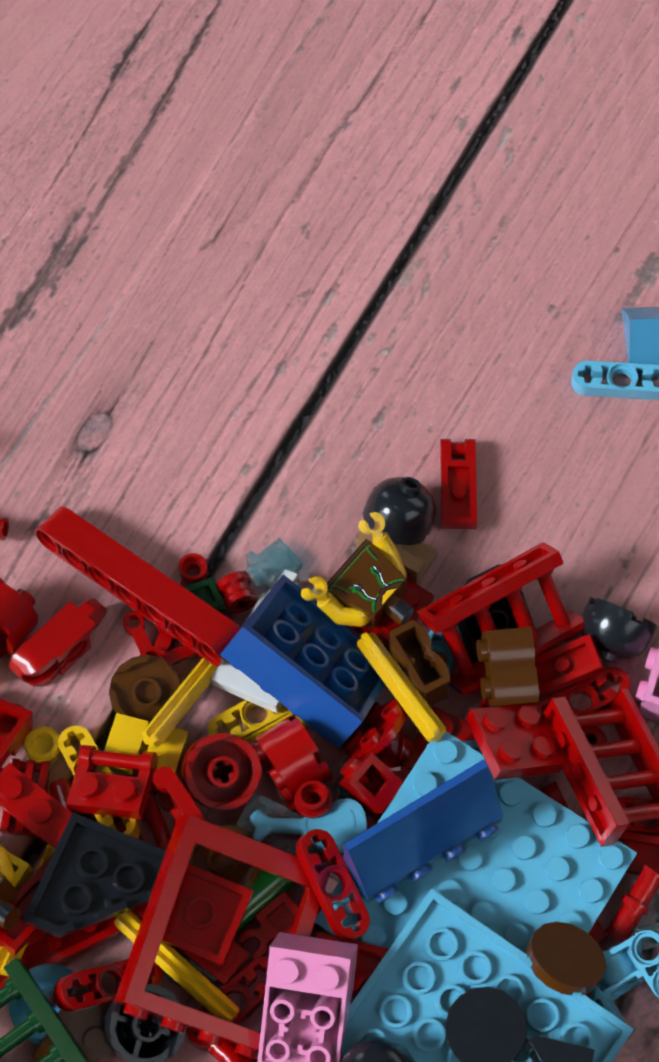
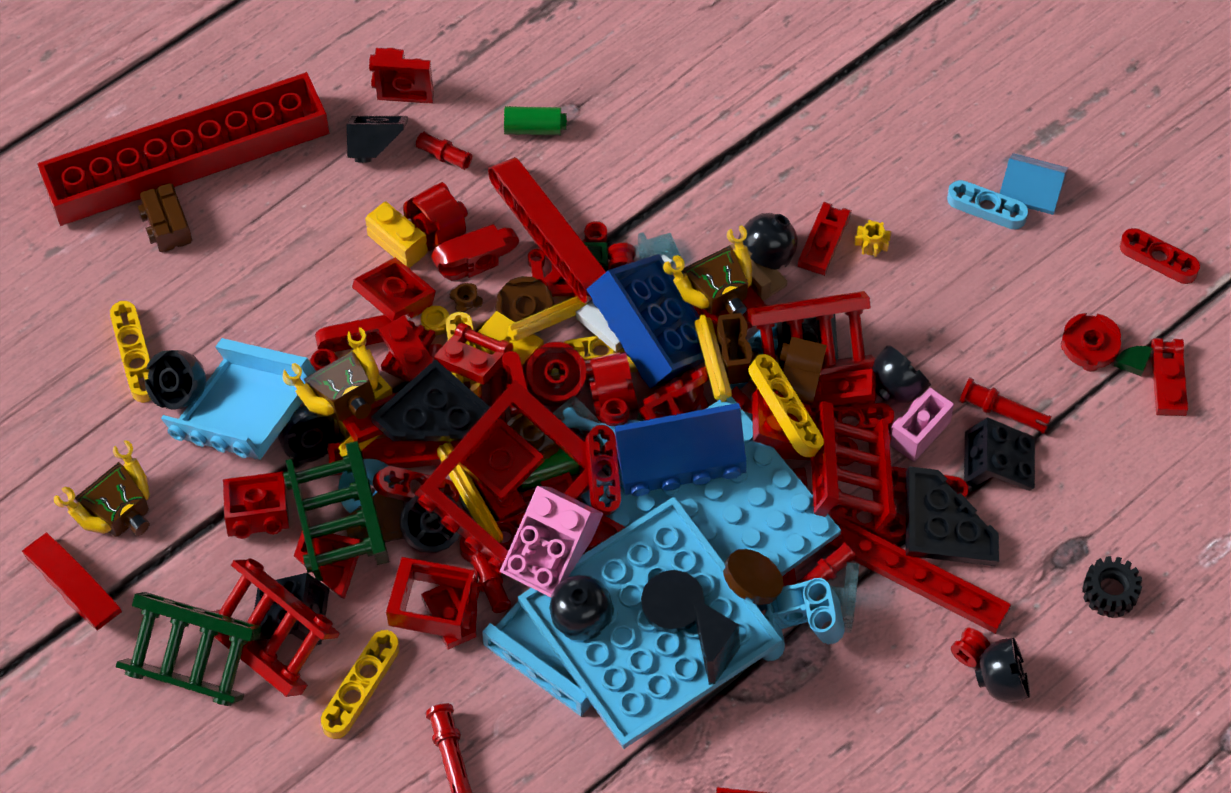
camera: 20 degrees right, 5 degrees down
(65, 451) = (534, 120): none -> green brick
(66, 694) = (466, 290): none -> reddish brown plate
(511, 725) = (803, 434): none -> yellow beam
(513, 456) = (872, 238): none -> yellow gear

